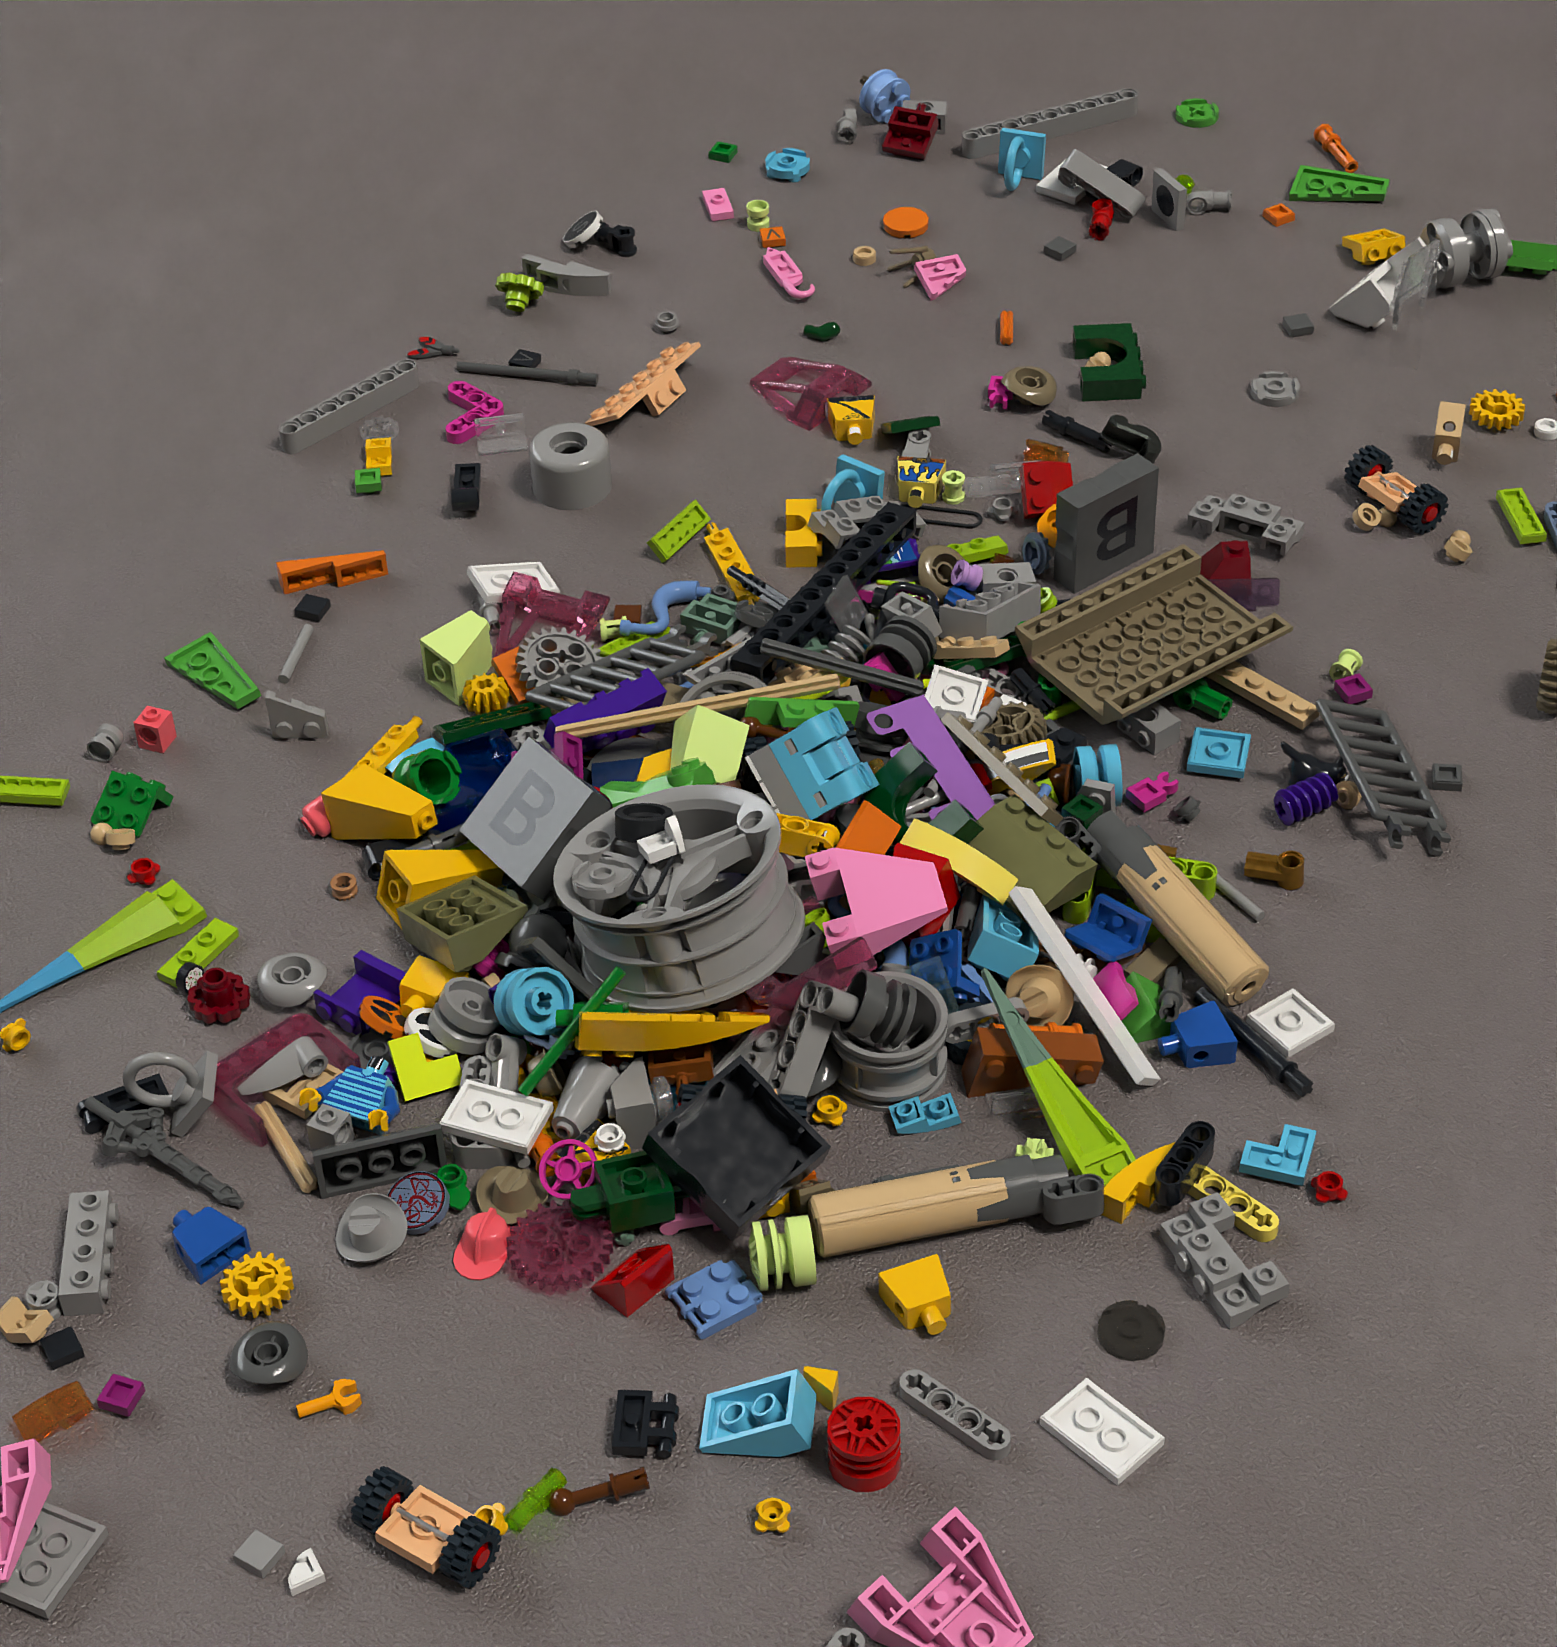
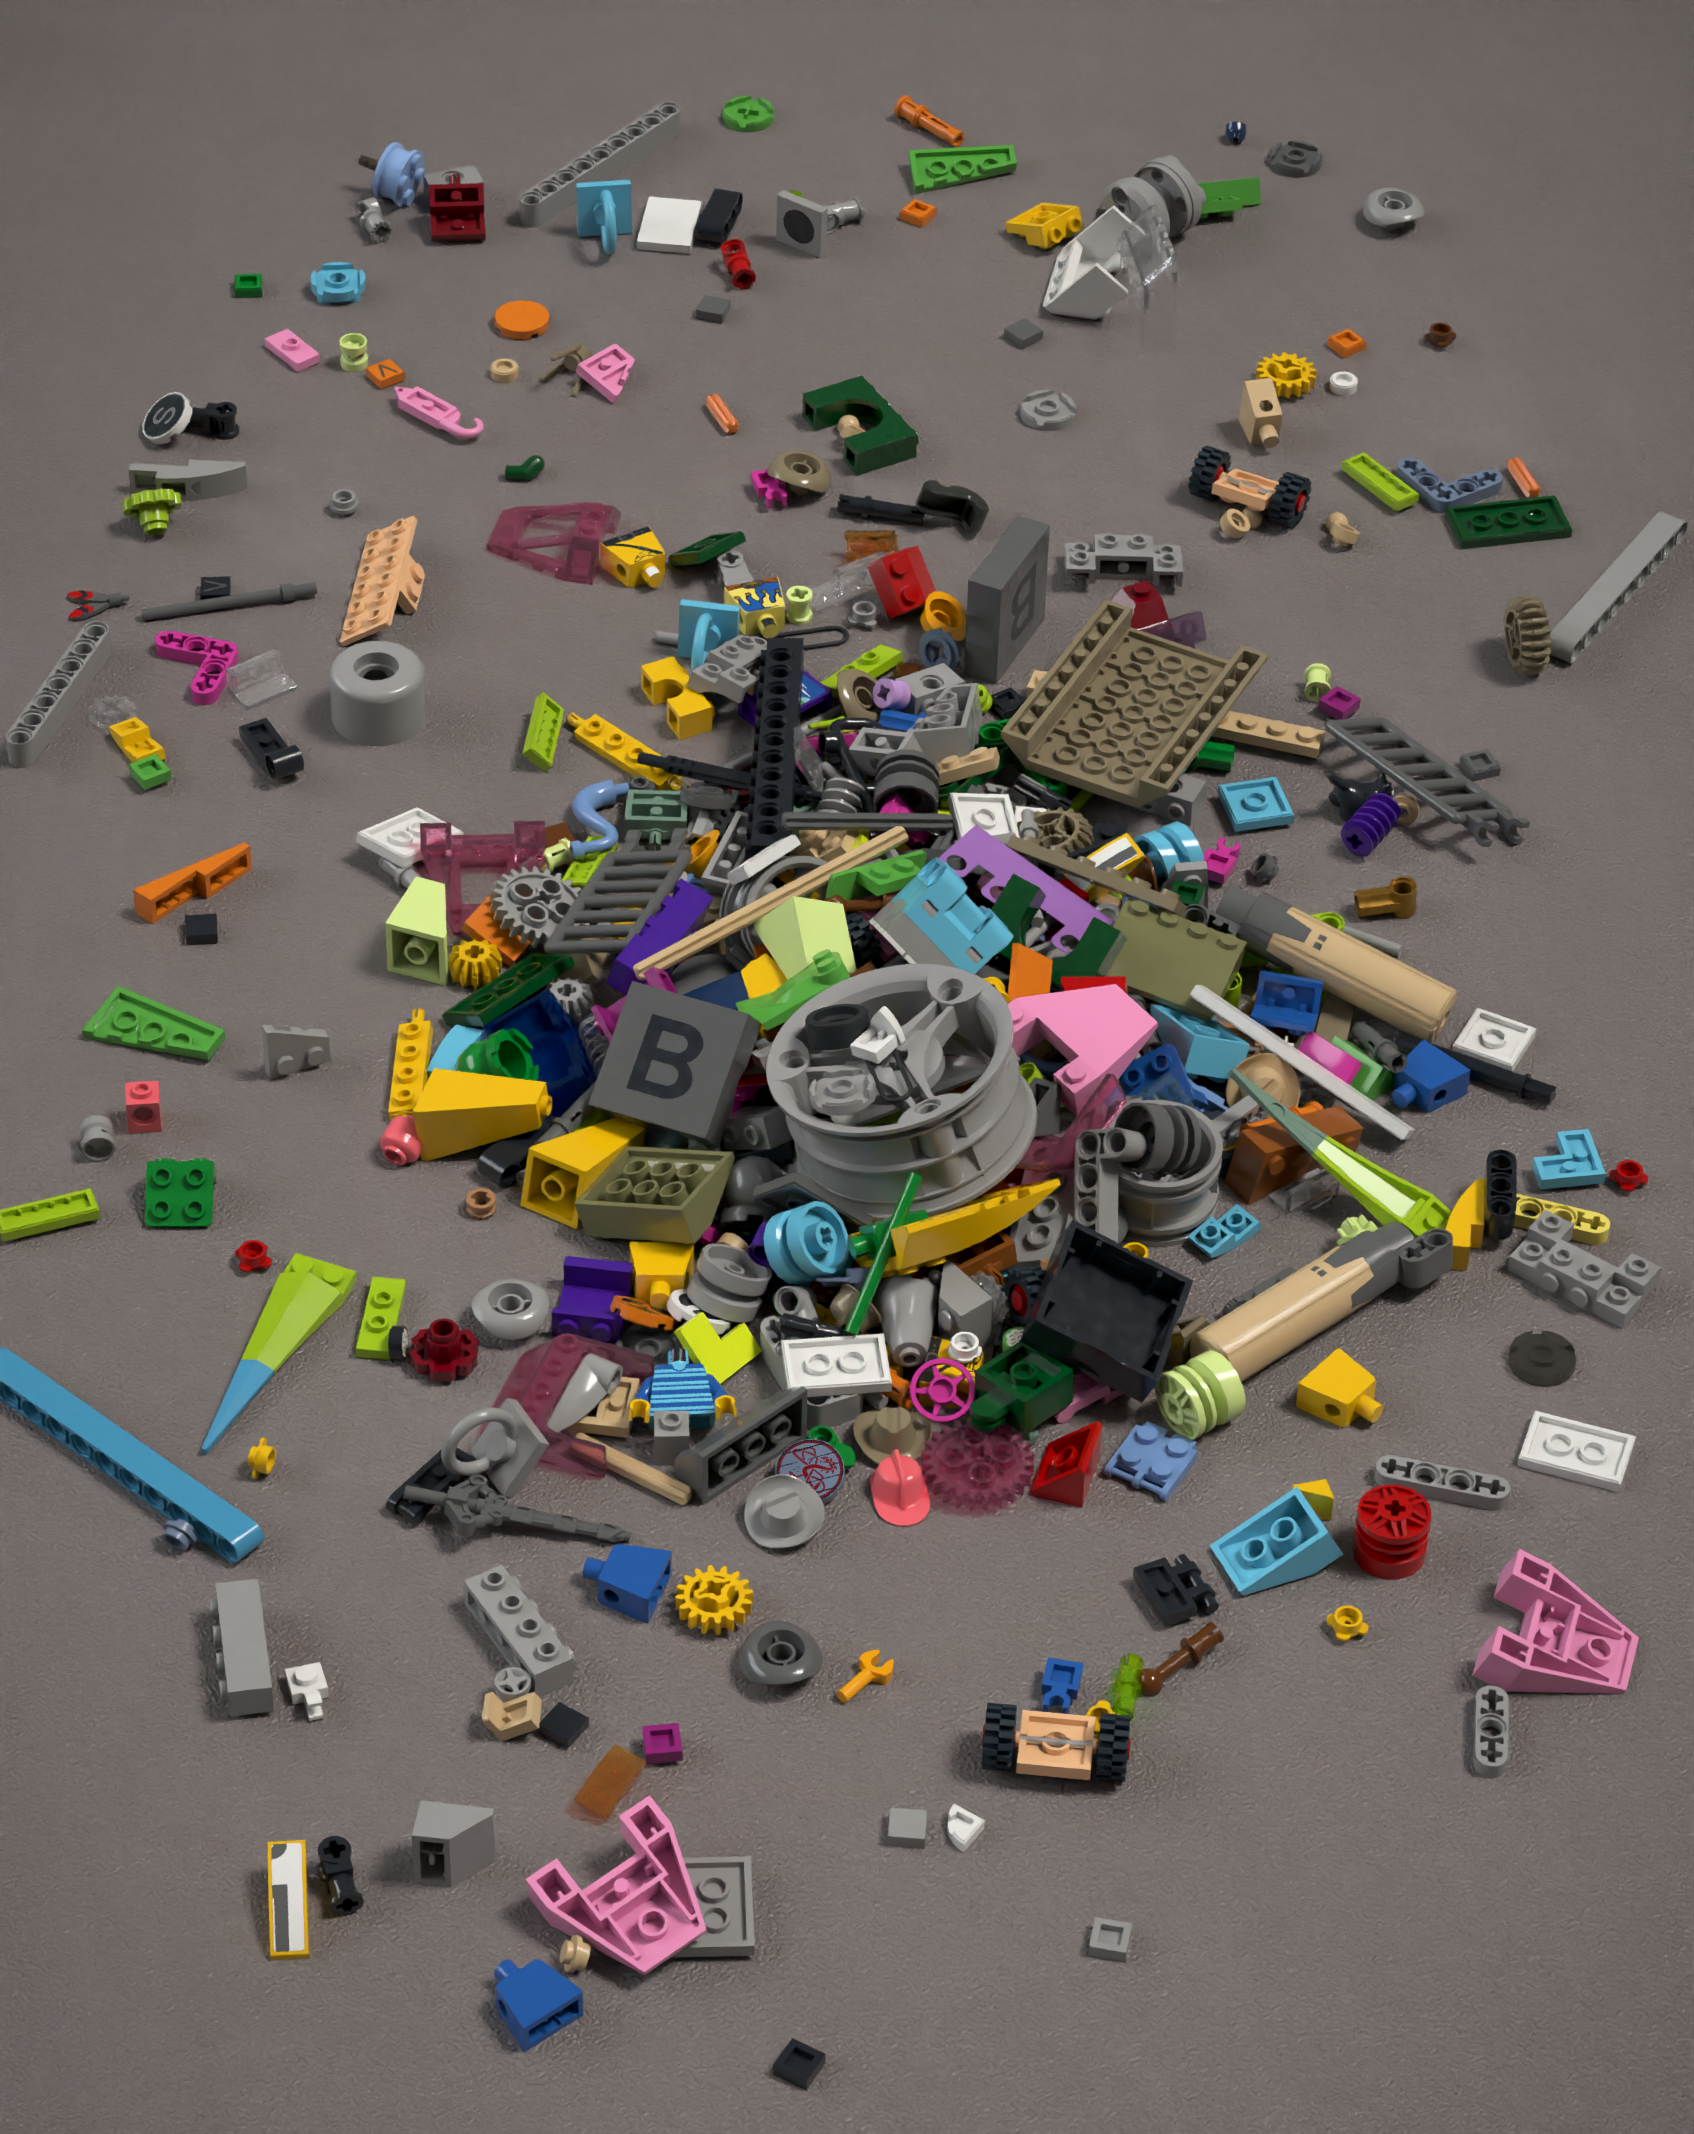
camera: 30 degrees left, 0 degrees up
(119, 838) = (197, 1230): tan plate -> none
(296, 653) = (223, 982): light grey bar -> none
(481, 1471) = (1061, 1683): none -> blue plate
(493, 1075) = (808, 1328): none -> black axle
(728, 664) = (763, 859): none -> white tile
(965, 860) = (1142, 978): light yellow slope -> none
(1100, 182) = (716, 222): light grey beam -> none

